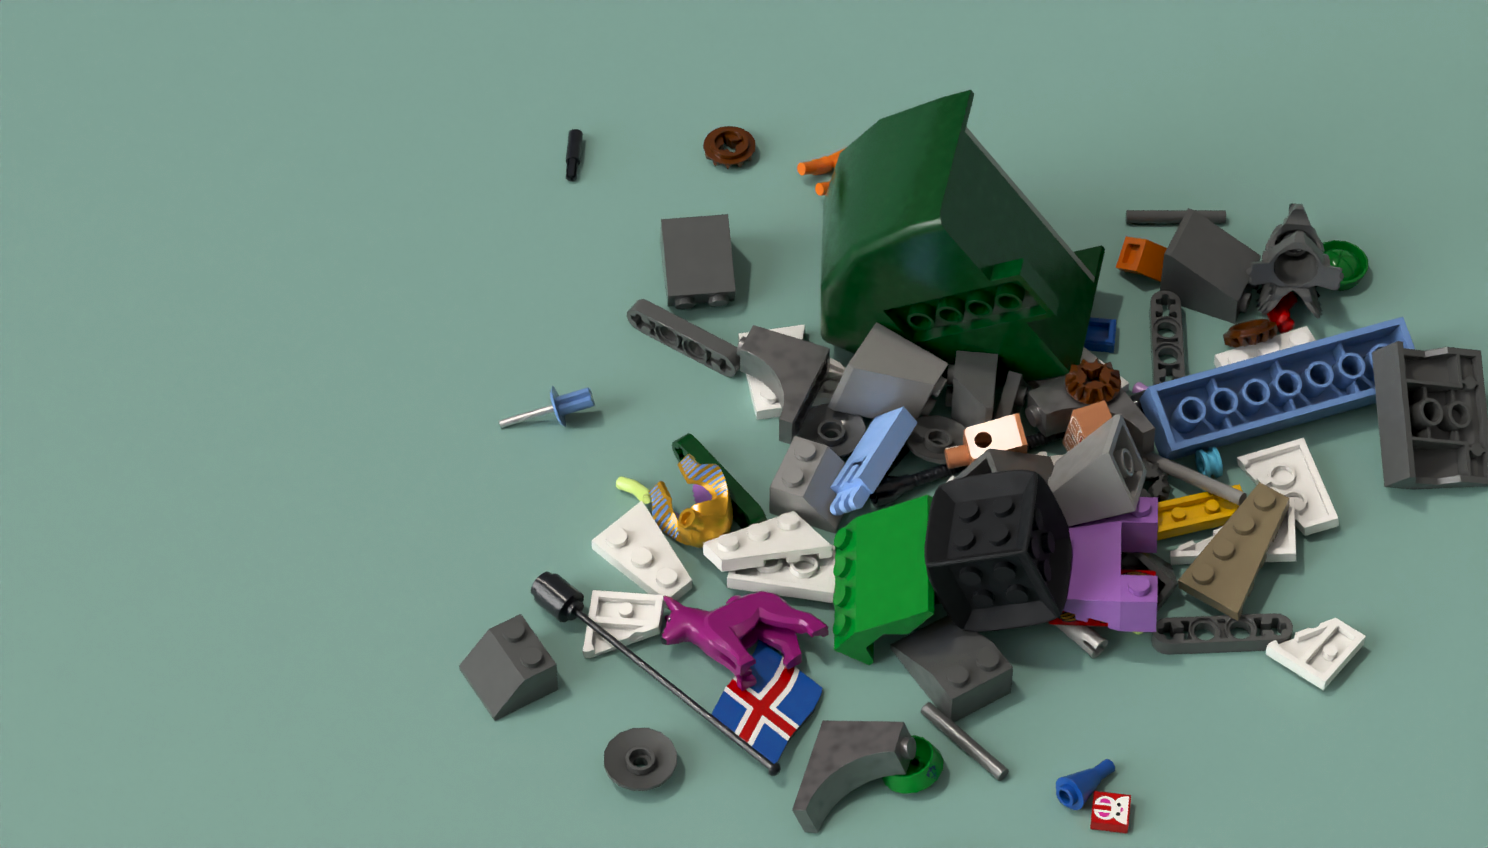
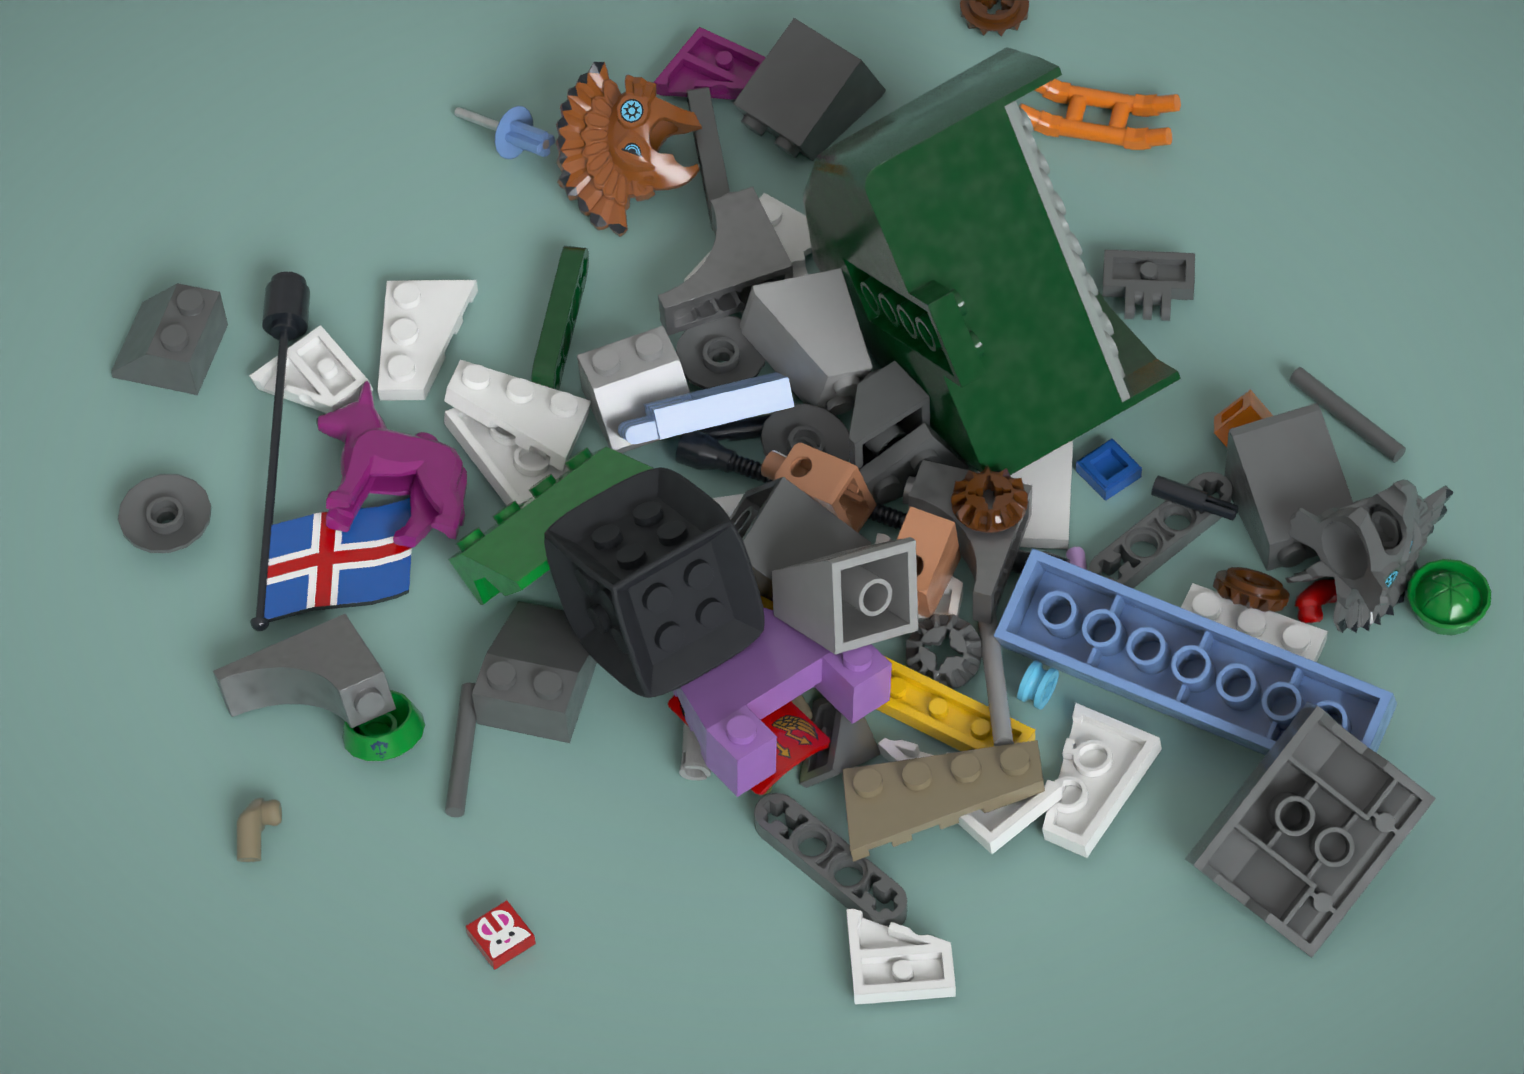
camera: 50 degrees right, 5 degrees up
(620, 288) = (710, 63): none -> magenta wing
(633, 369) = (613, 146): none -> dark orange piece
(634, 487) = (490, 266): yellowish green piece -> none
(708, 517) = (489, 341): pearl gold piece -> none
(1078, 787) = (498, 883): blue cone -> none
(1167, 311) = (1192, 498): none -> black pin

